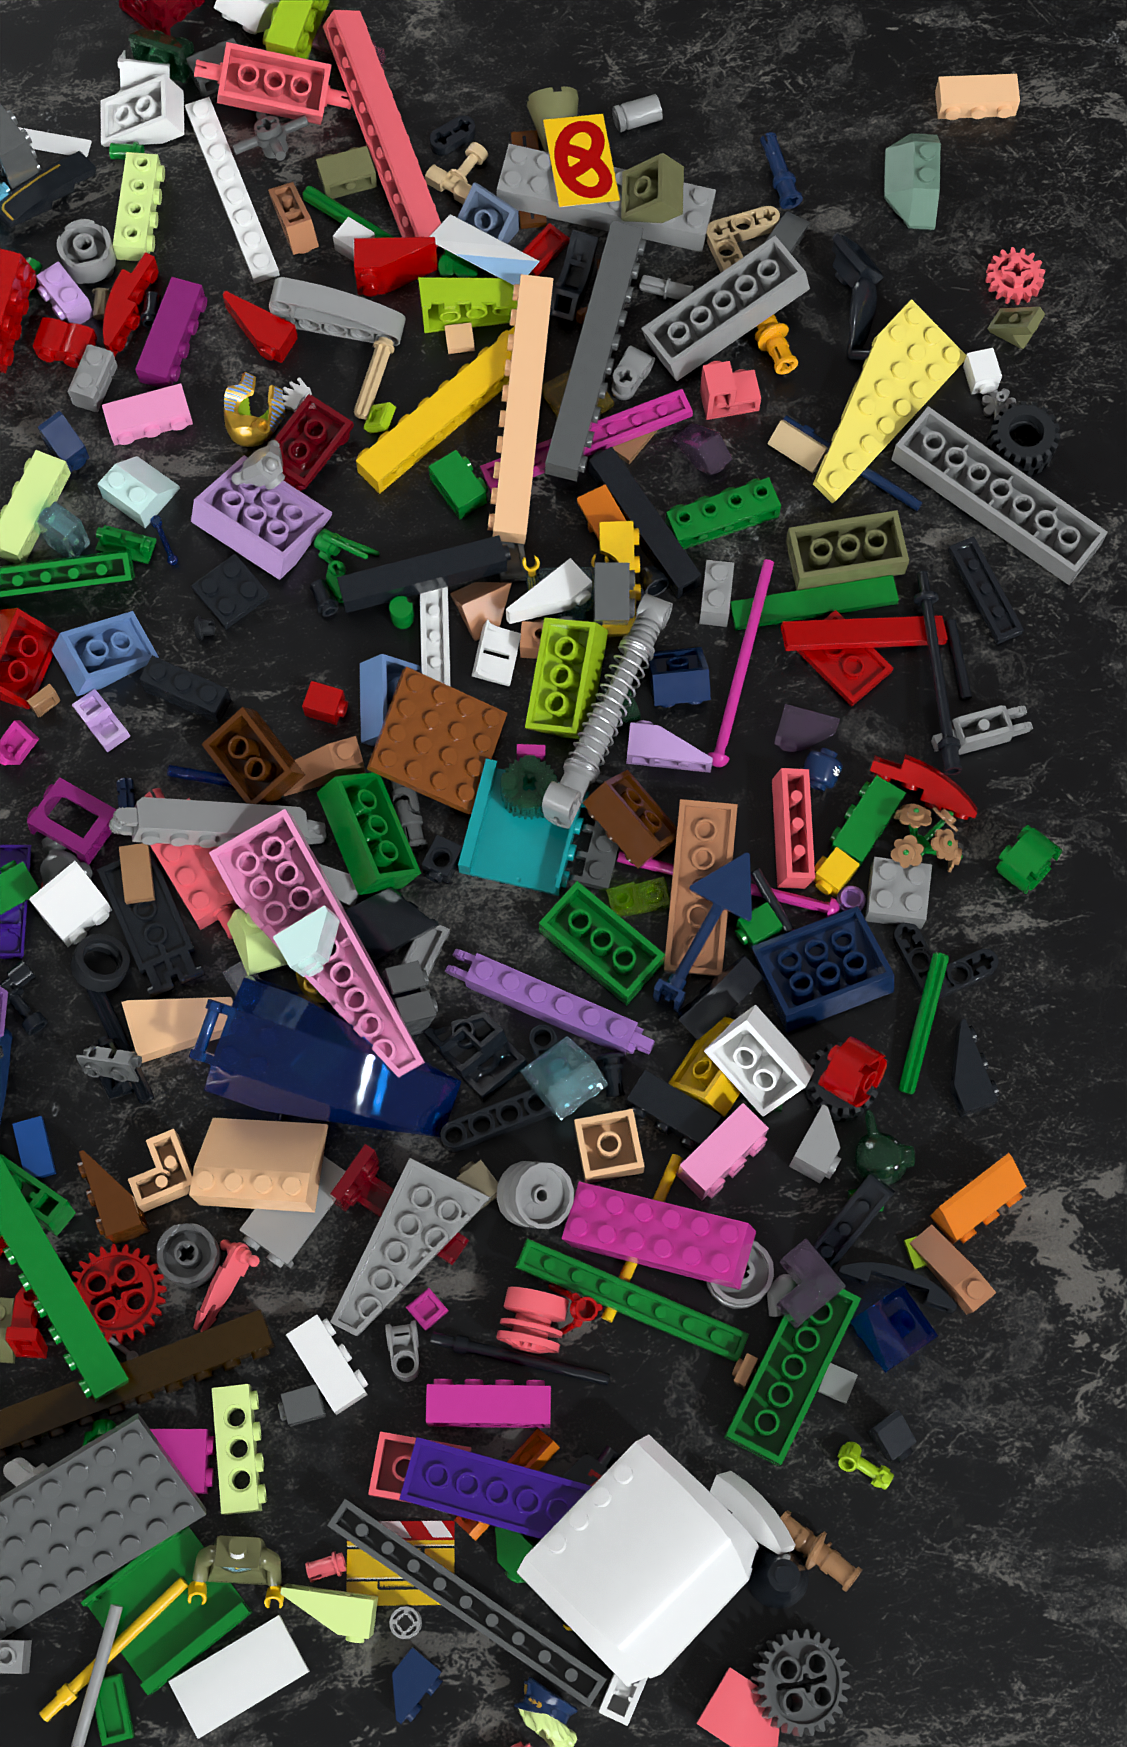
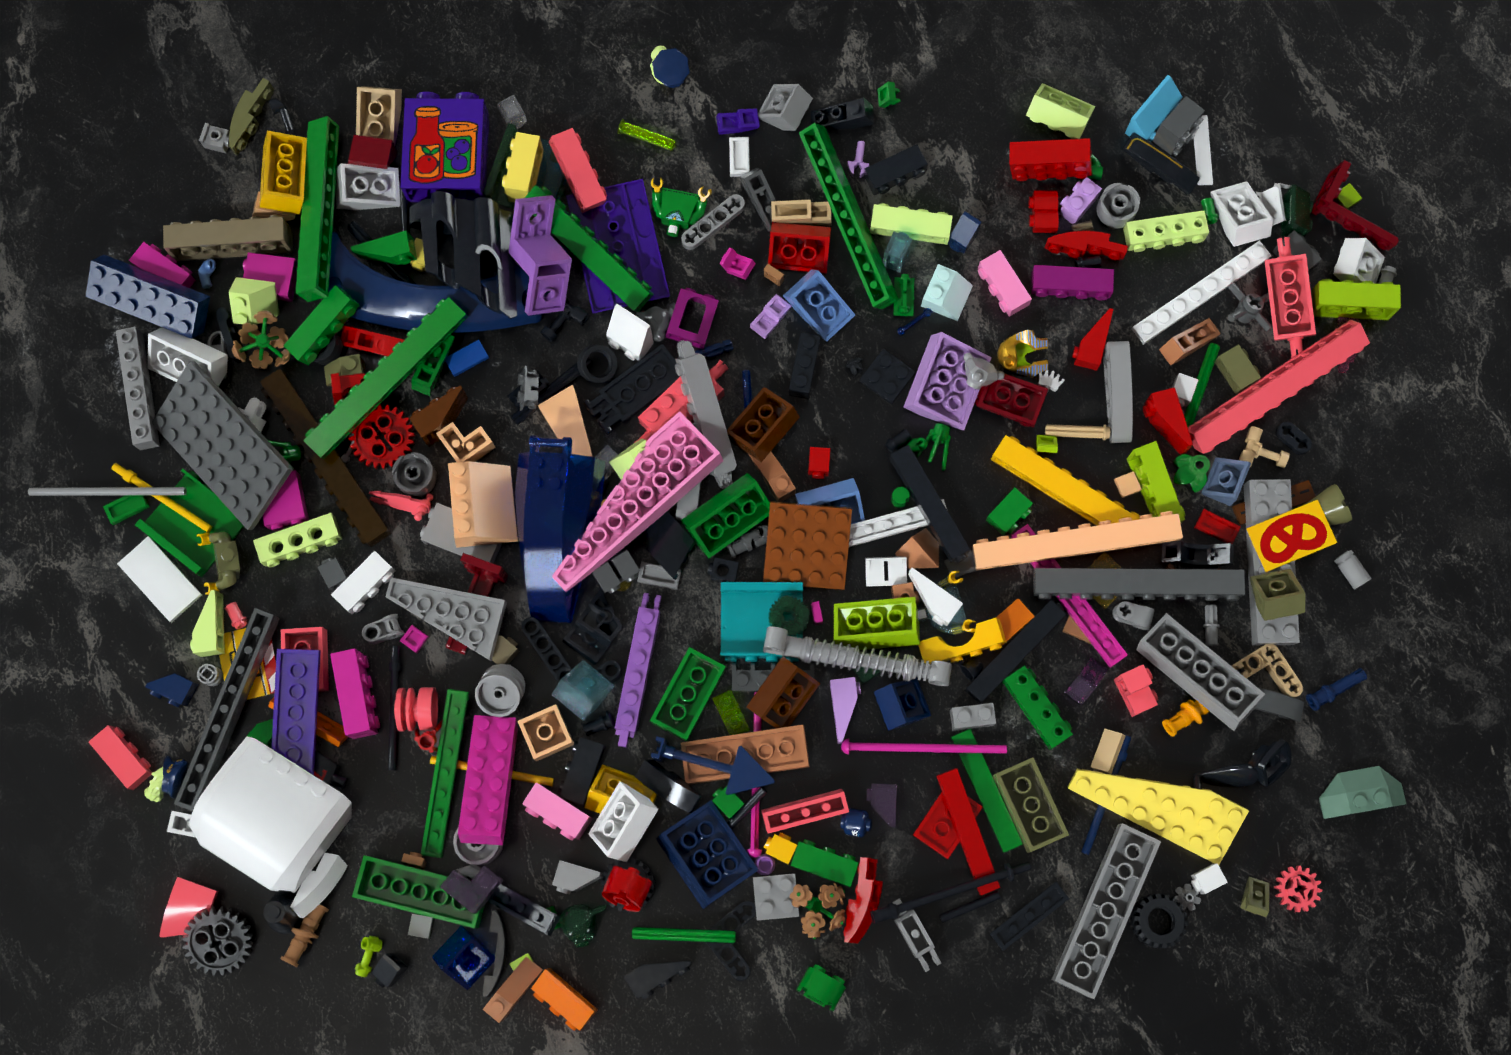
camera: 80 degrees right, 5 degrees up
(92, 378) = (1021, 238): light grey brick -> none
(136, 873) = (661, 370): medium nougat tile -> none
(309, 941) = (623, 493): light aqua slope -> none
(483, 250) = (1199, 483): sticker -> none
(611, 593) = (940, 639): dark grey brick -> none
(977, 96) = (1447, 829): light nougat brick -> none

